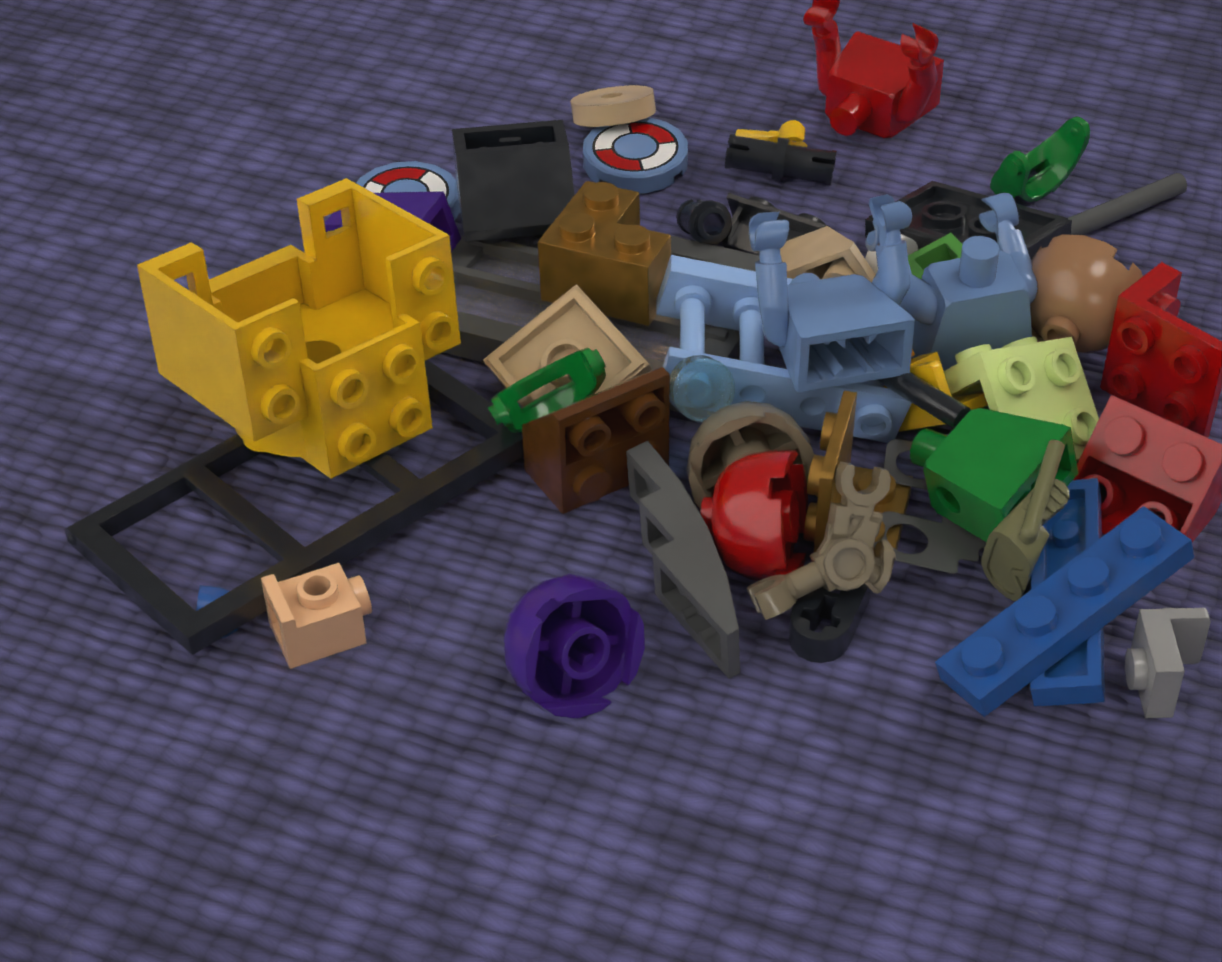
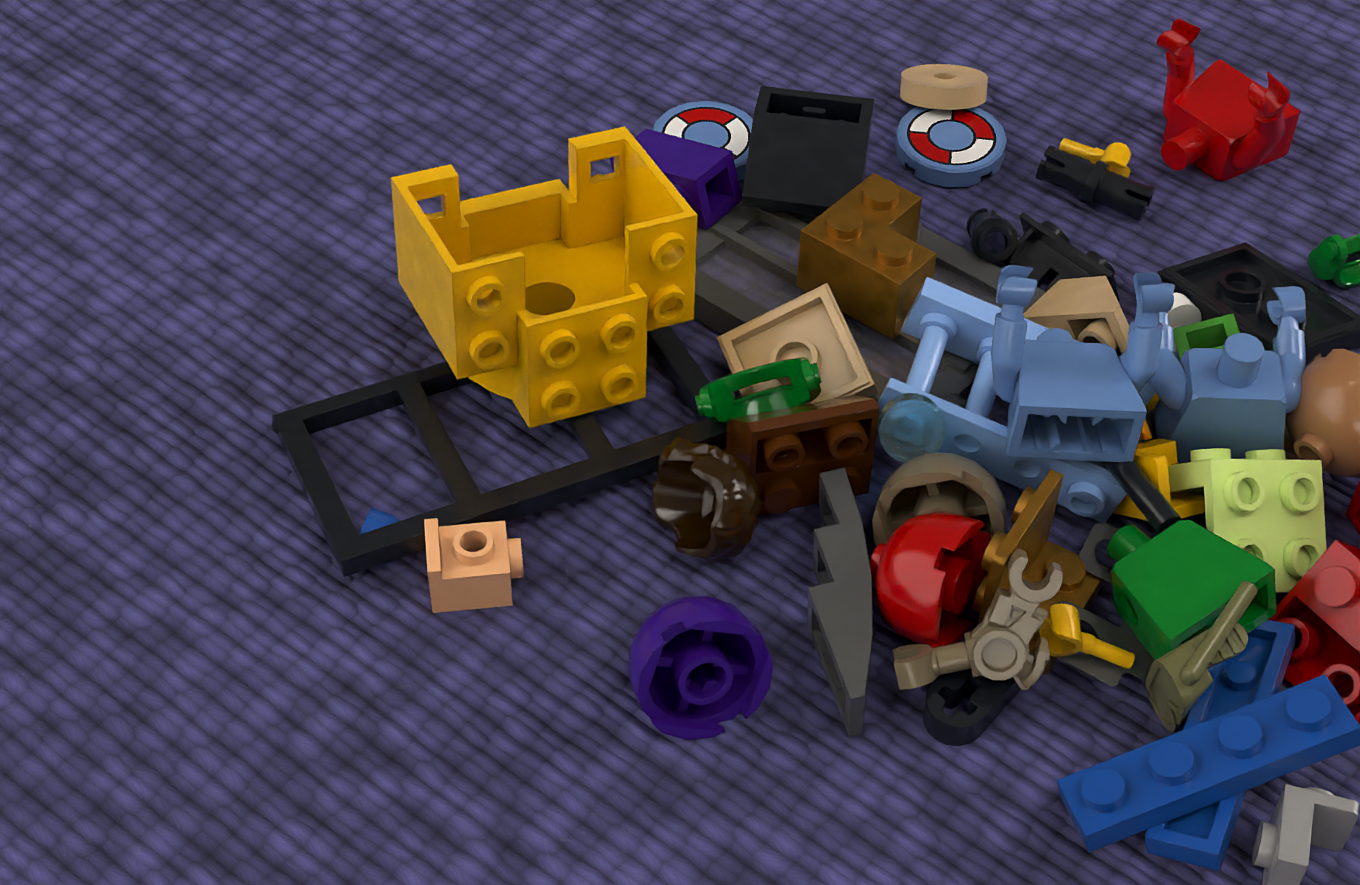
camera: 15 degrees right, 5 degrees up
(525, 499) = (705, 500): none -> dark brown hair
(906, 539) = (1066, 638): none -> yellow hand

